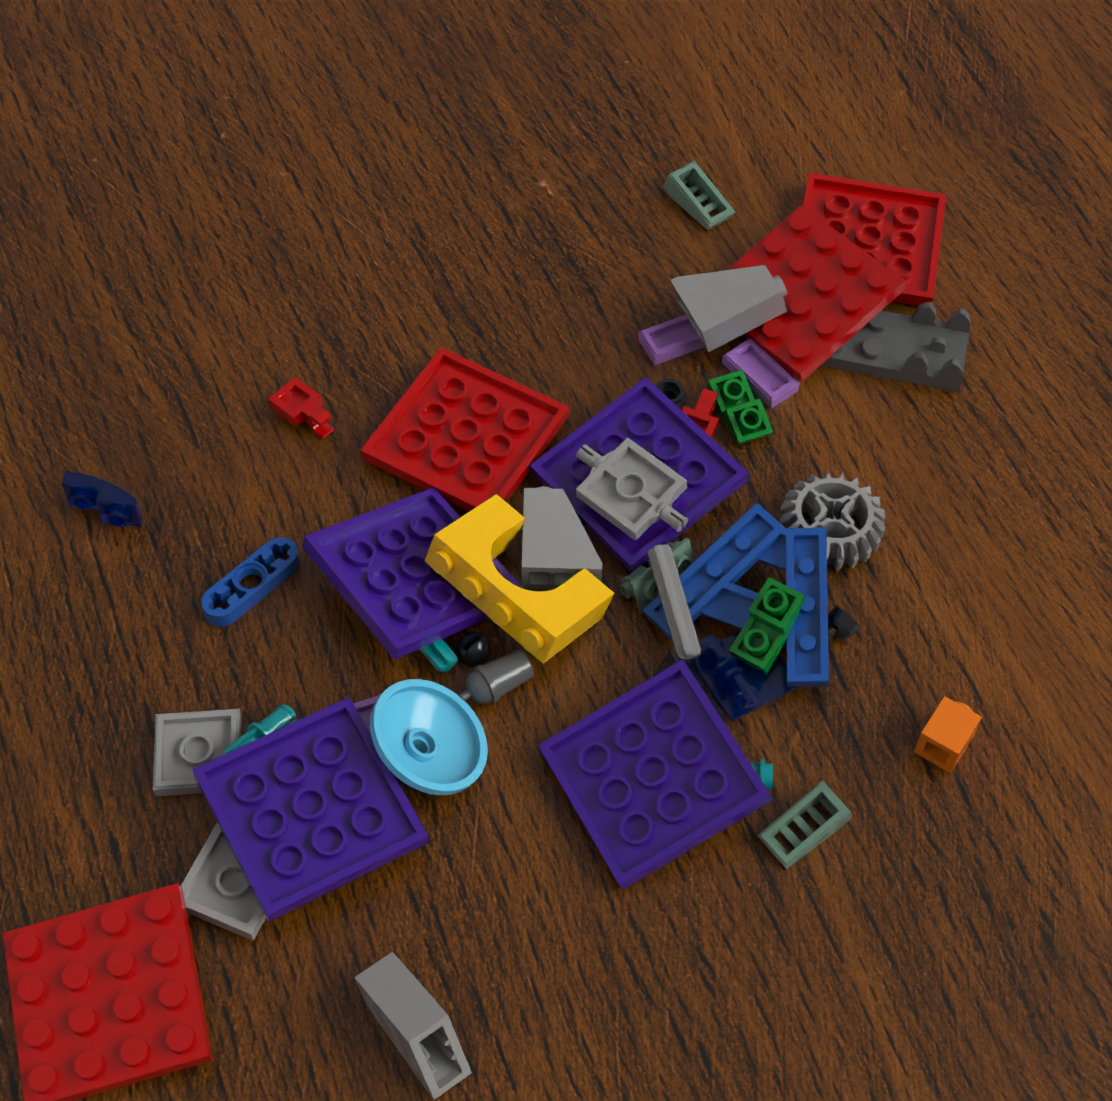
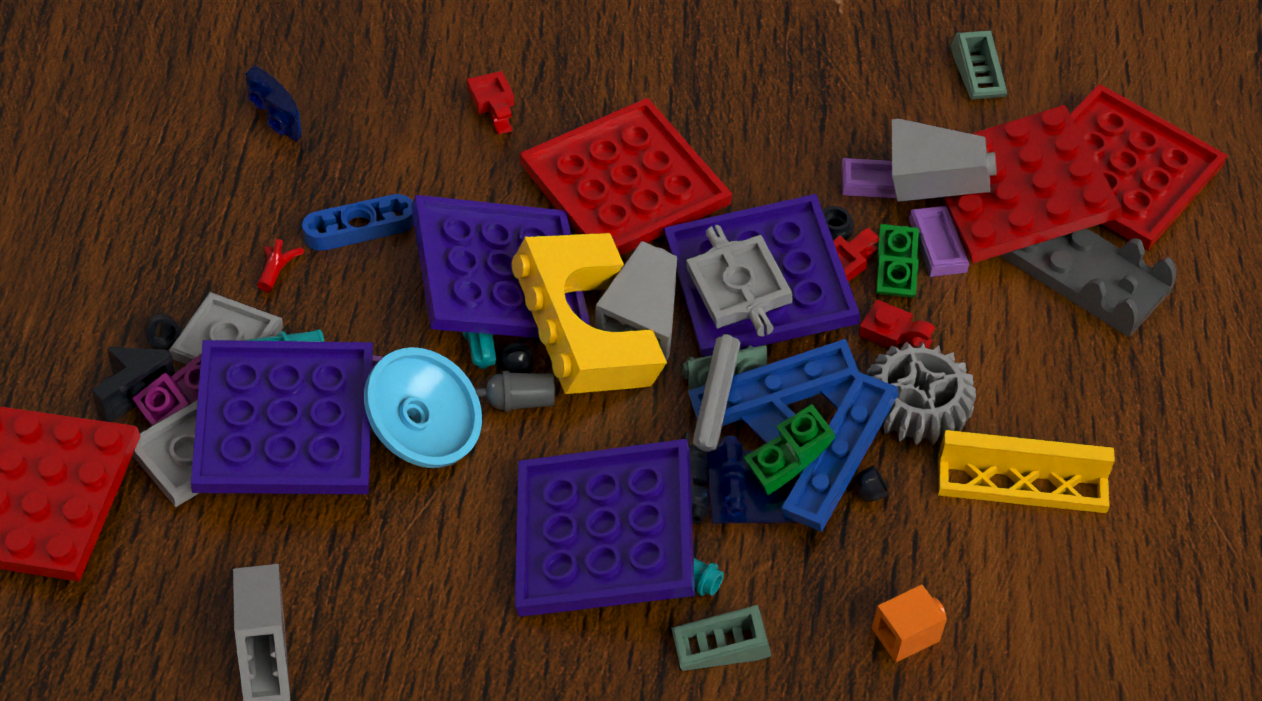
camera: 25 degrees right, 5 degrees down
(138, 771) = (168, 331): none -> black hinge
(141, 829) = (133, 372): none -> black slope
(185, 831) = (170, 393): none -> magenta slope
(198, 658) = (275, 263): none -> red bar
(770, 470) = (892, 326): none -> red plate
(952, 539) = (1023, 463): none -> yellow fence

